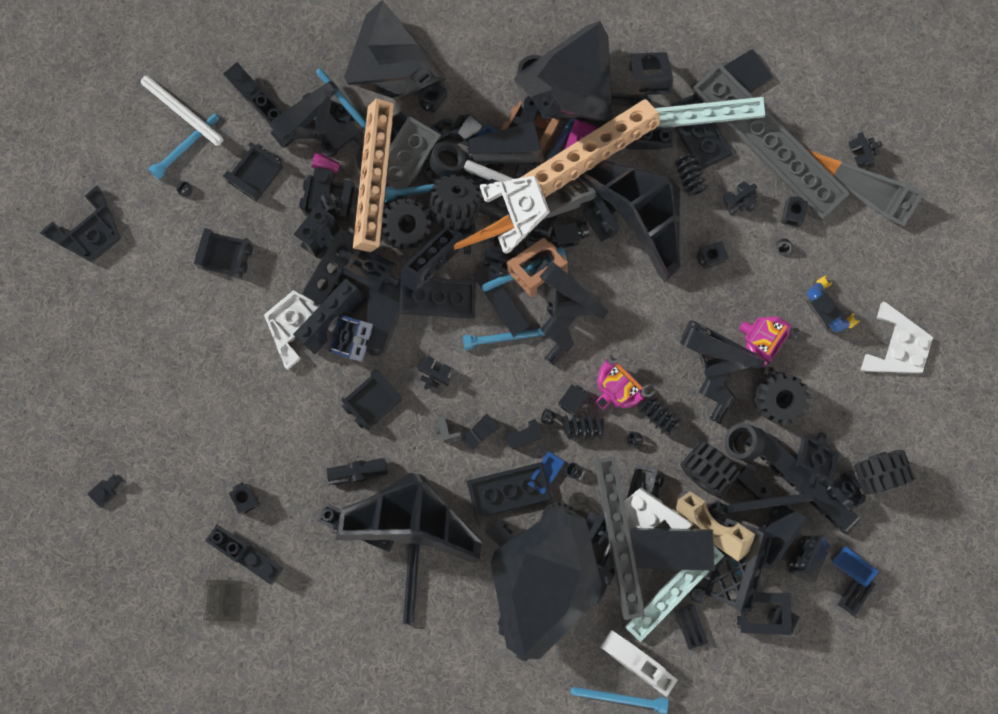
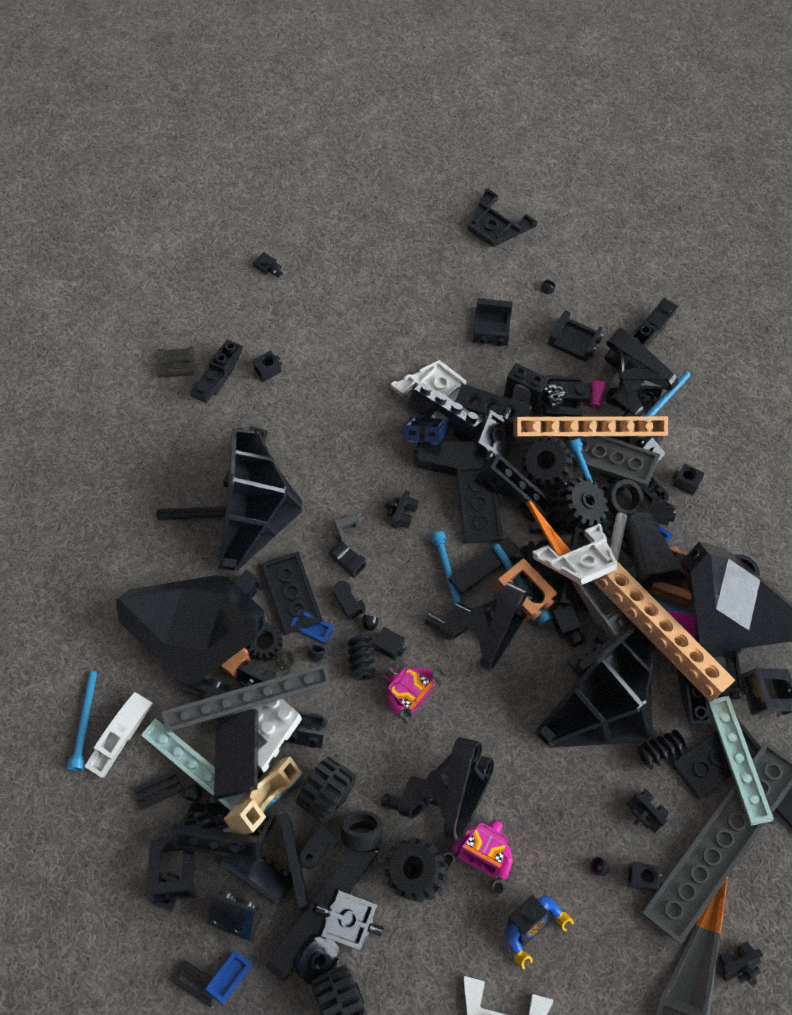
camera: 85 degrees right, 15 degrees down
(158, 169) = (561, 264): dark azure piece -> none
(181, 110) = (621, 274): white axle -> none
(357, 471) = (299, 454): black piece -> none
(371, 400) = (368, 459): black panel -> none
(389, 57) = (718, 434): black panel -> none
(634, 439) = (355, 713): black hinge -> none
(659, 415) = (382, 734): black piece -> none
(717, 509) = (285, 807): black plate -> none
(719, 252) = (573, 790): black brick -> none

